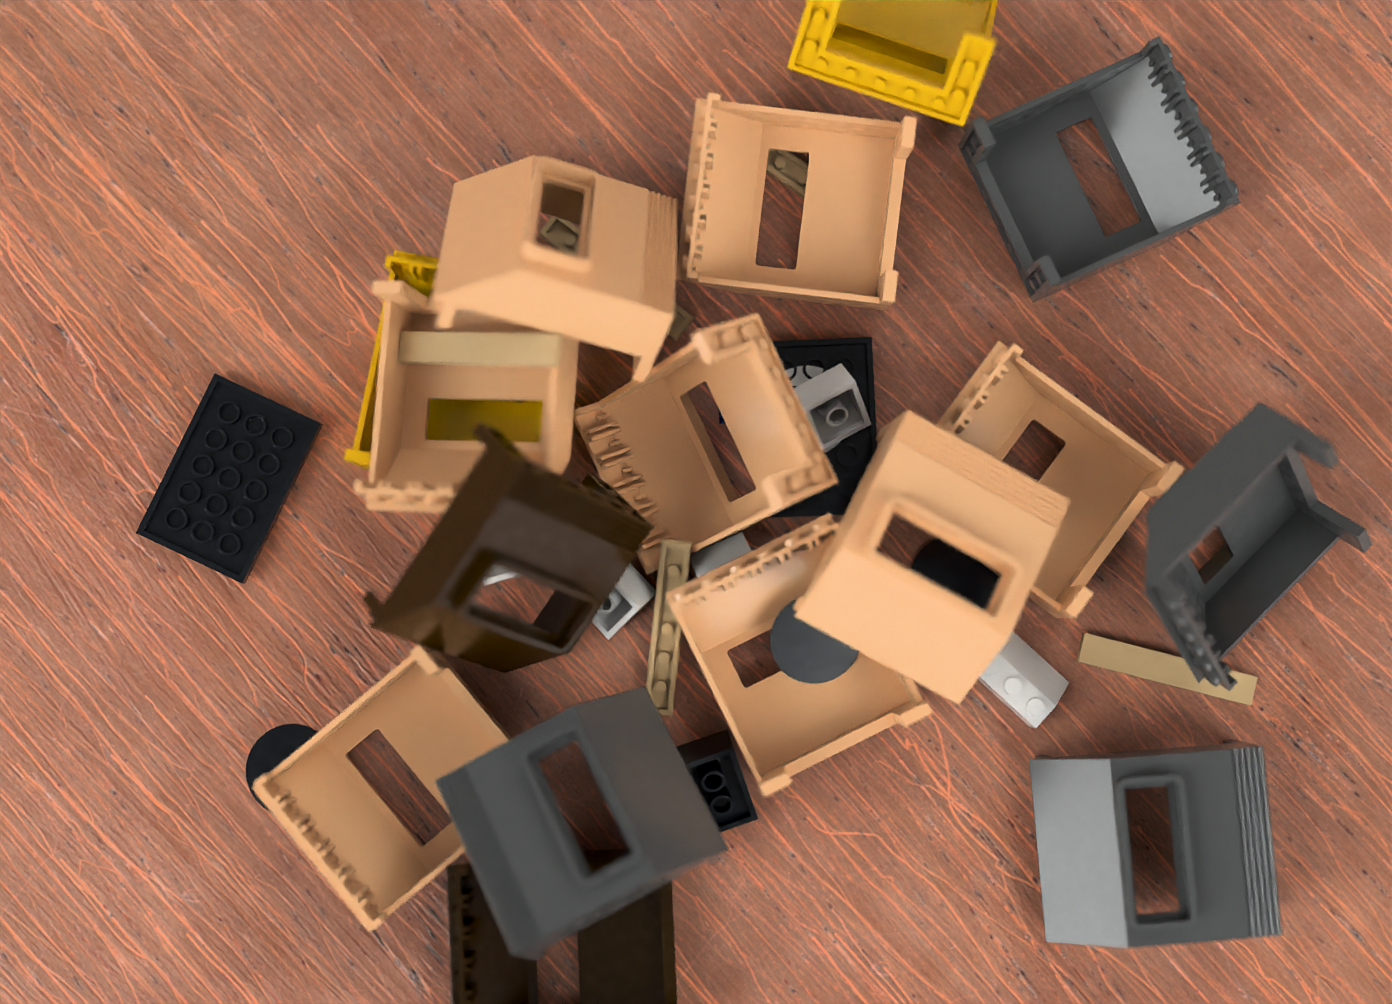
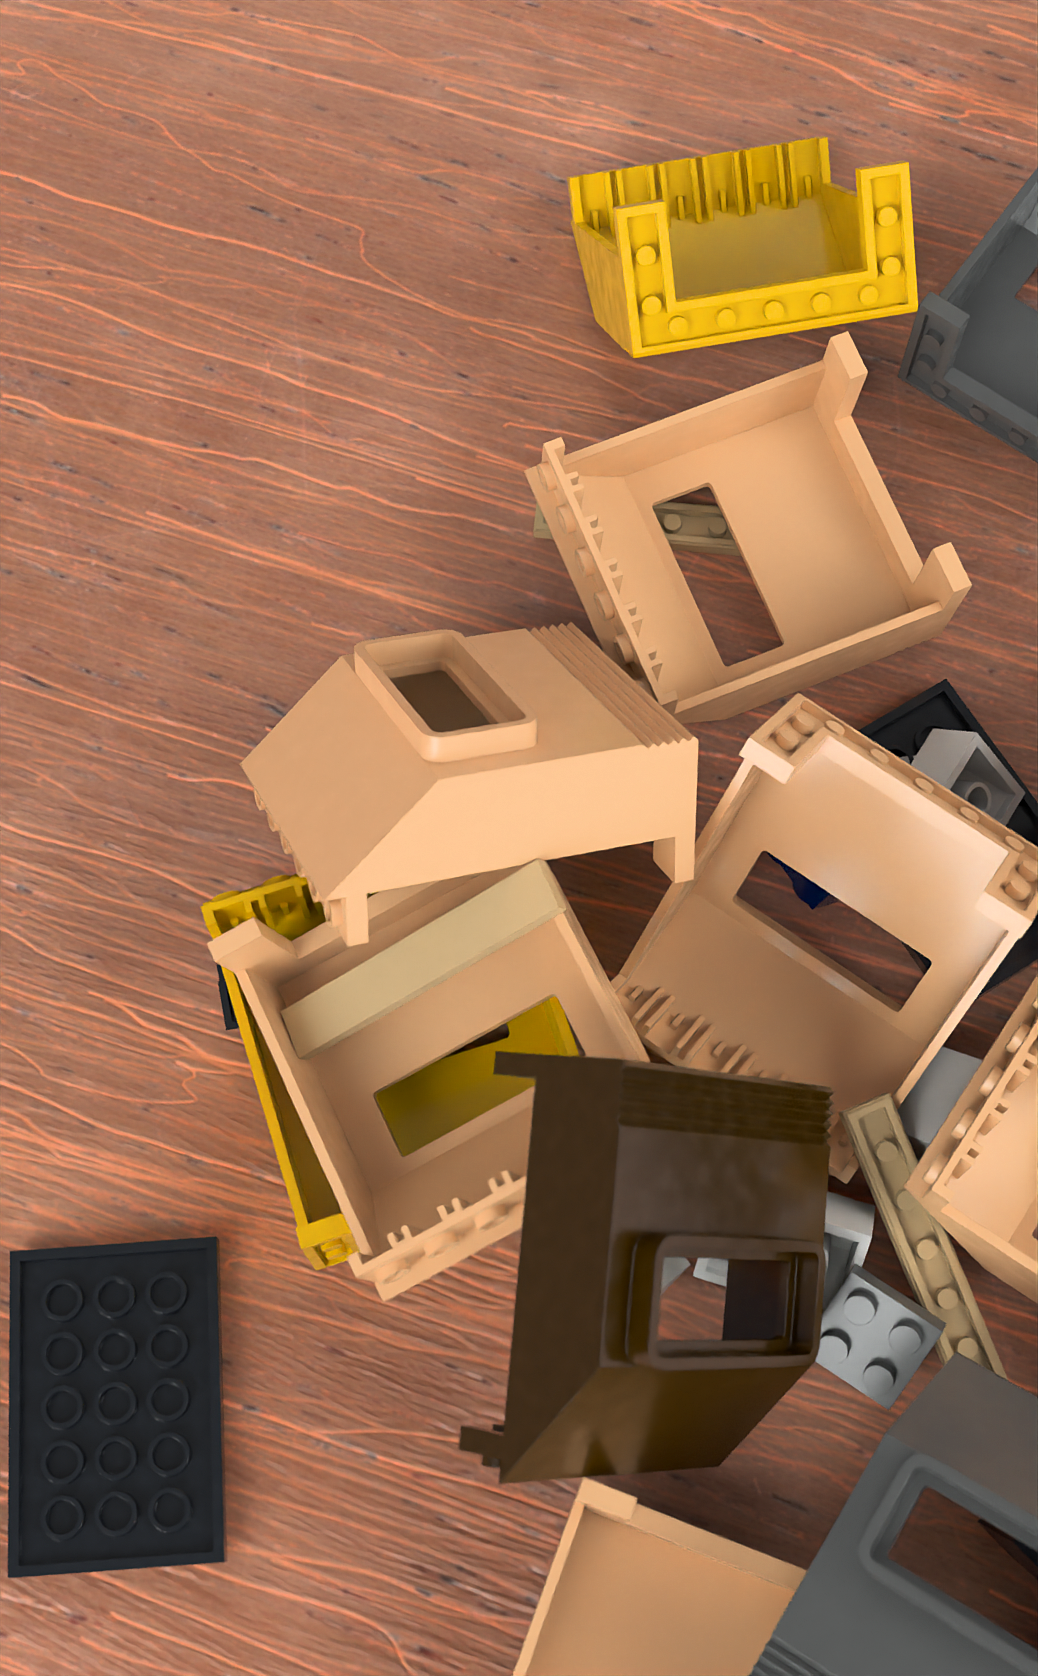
camera: 25 degrees left, 15 degrees down
(616, 654) = (875, 1336): none -> plate

